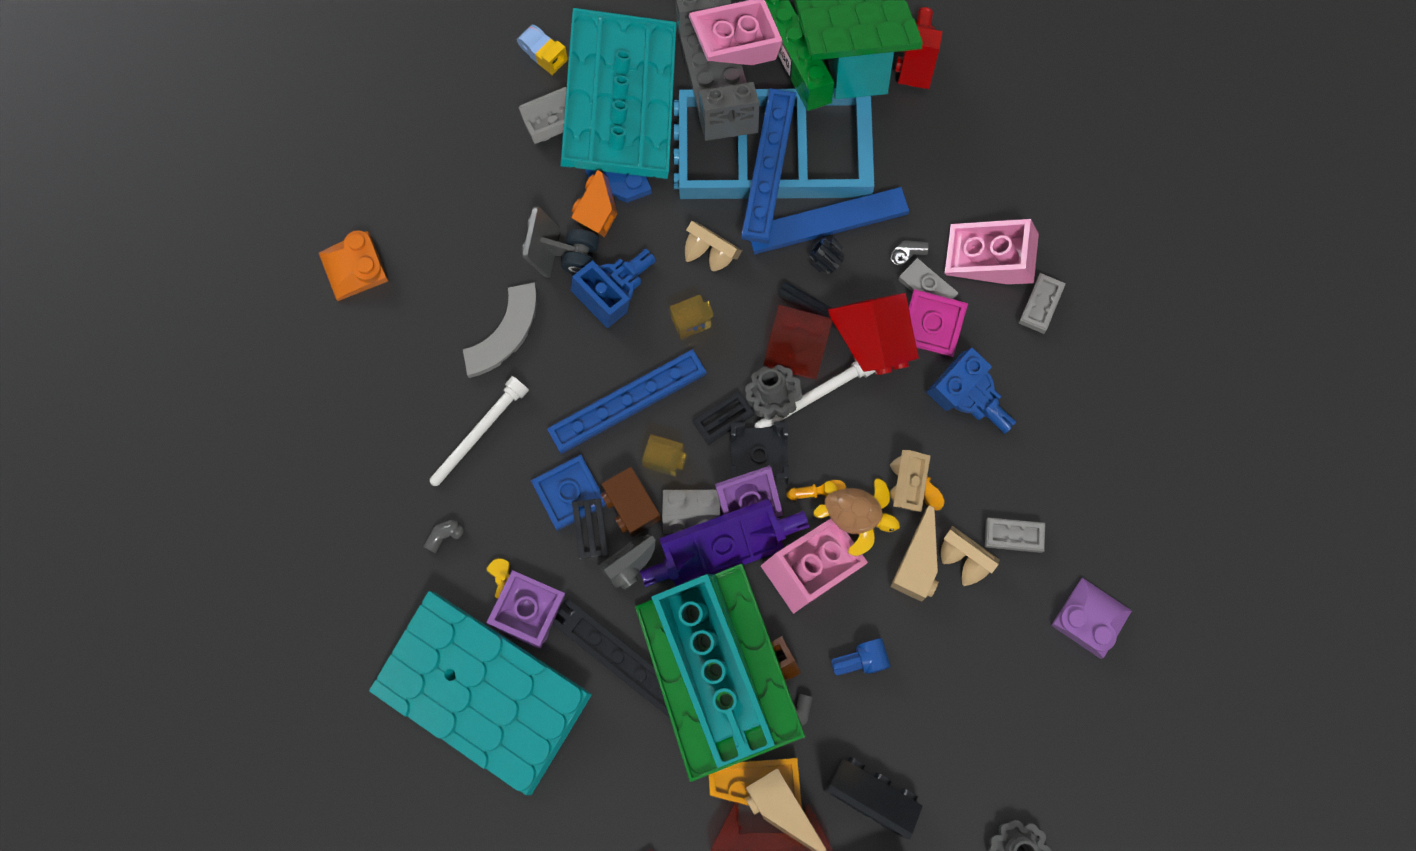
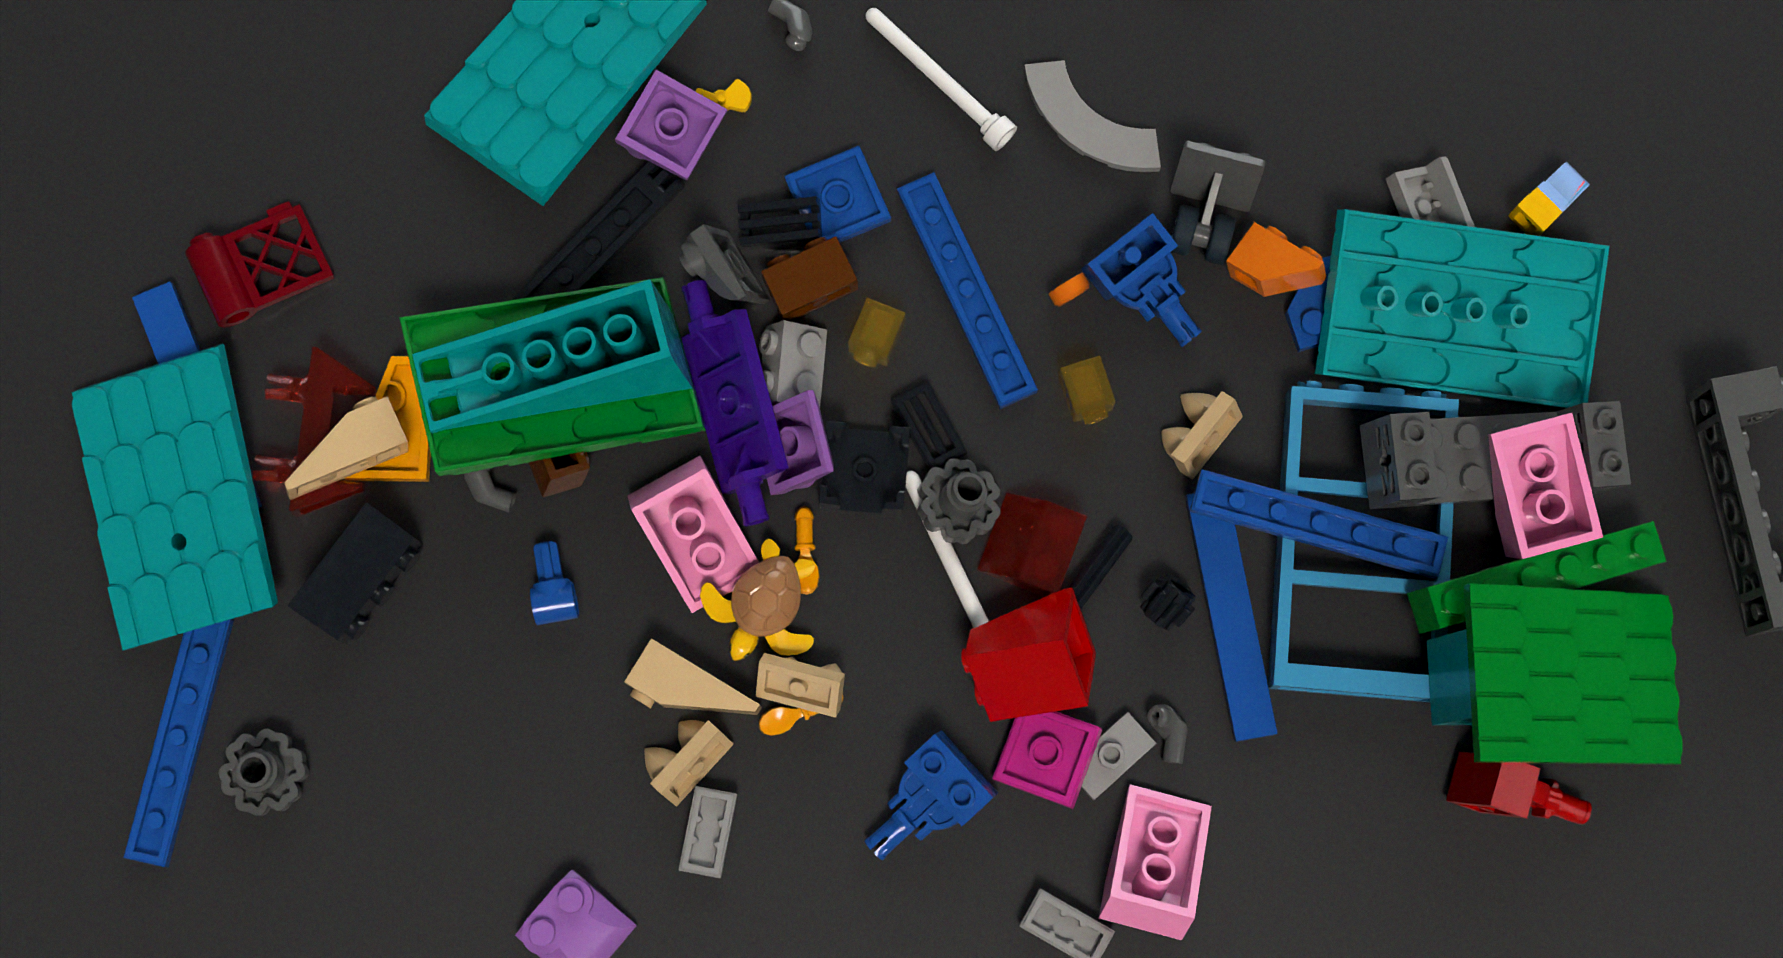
camera: 95 degrees right, 5 degrees up
(623, 333) = (1069, 290): none -> orange tile

